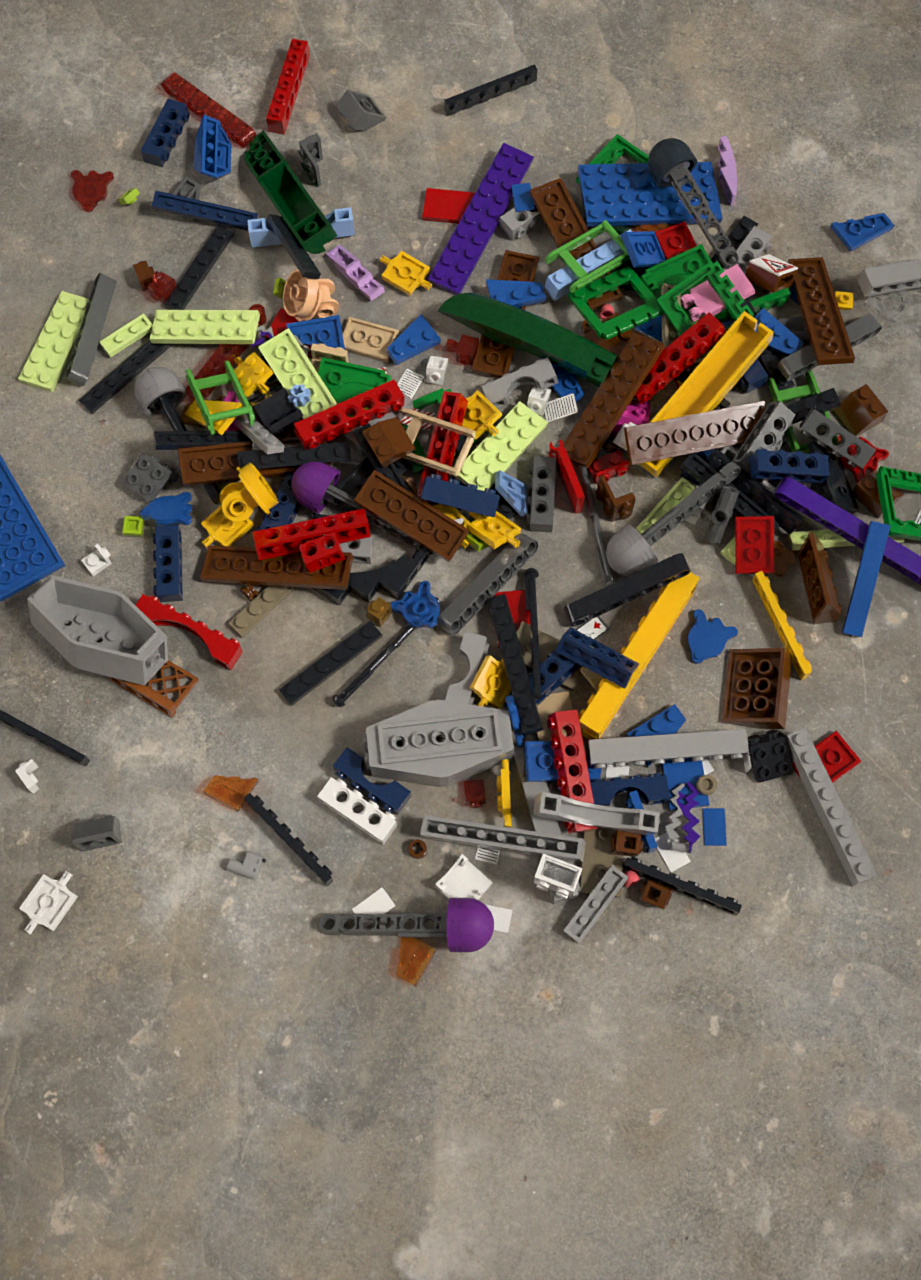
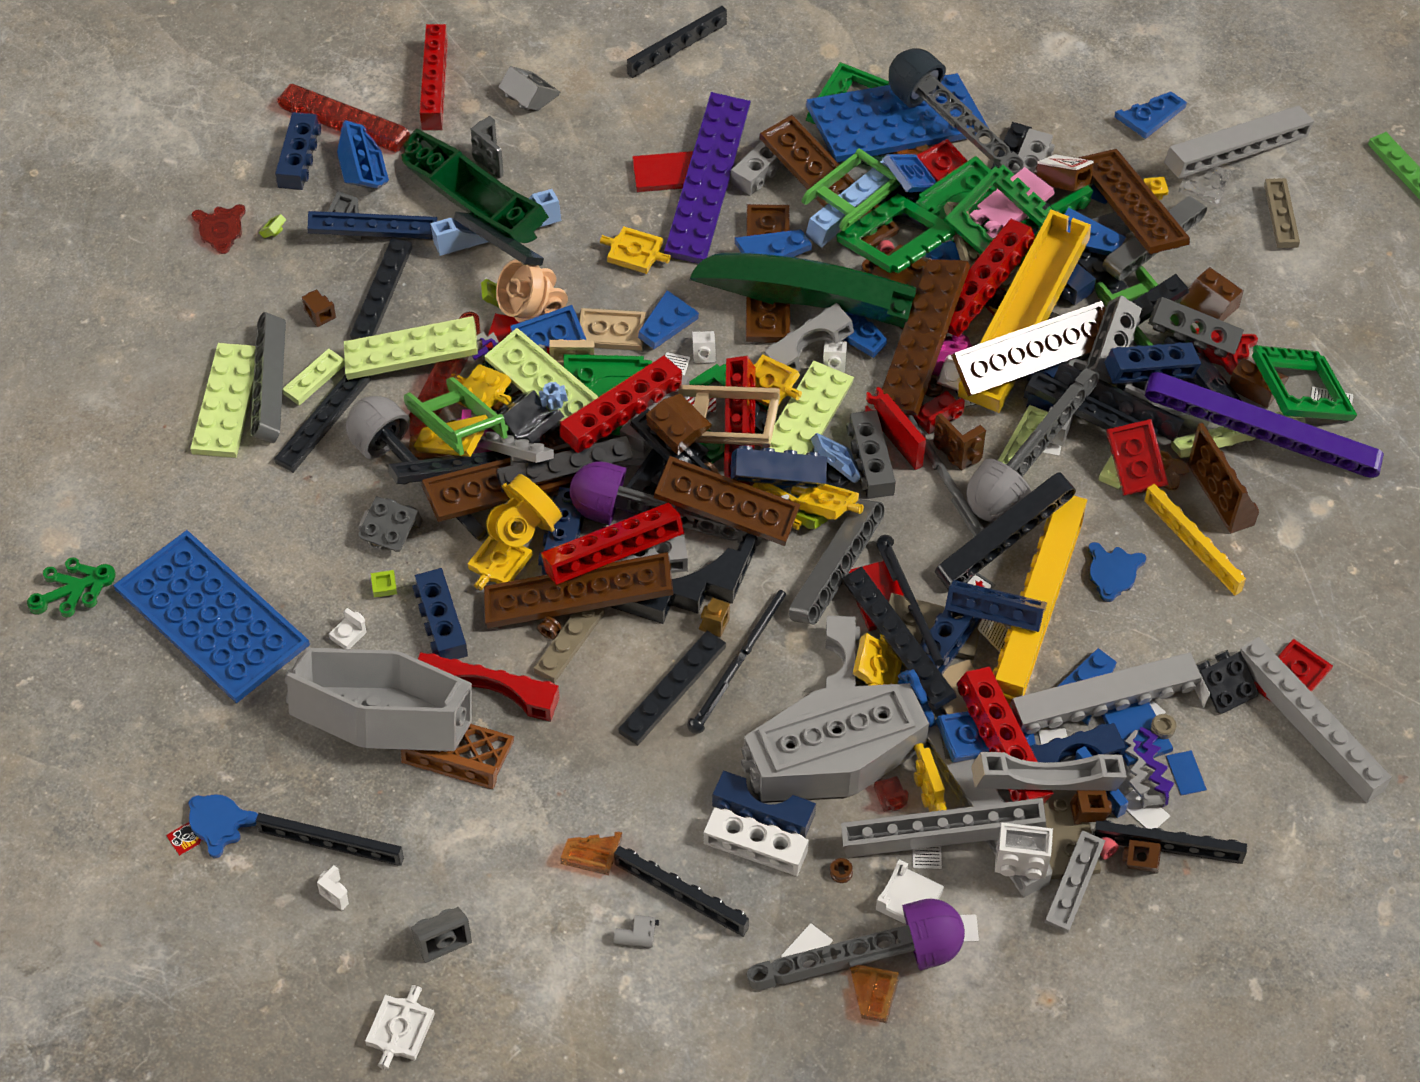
camera: 15 degrees left, 15 degrees down
(161, 286) = (343, 315): clear red brick -> none
(169, 509) = (424, 555): blue tile -> none
(323, 556) = (633, 557): red brick -> none
(355, 273) = (568, 257): lavender slope -> none
(418, 608) = (762, 605): blue tile -> none
(464, 349) = (732, 317): clear red brick -> none
(522, 197) = (751, 144): blue sticker -> none
(560, 408) = (864, 358): white sticker -> none
(718, 524) = (1091, 417): dark grey piece -> none
(727, 174) = (980, 80): lavender slope -> none
(757, 688) = (1188, 610): reddish brown slope -> none
(866, 578) = (1276, 468): blue tile -> none

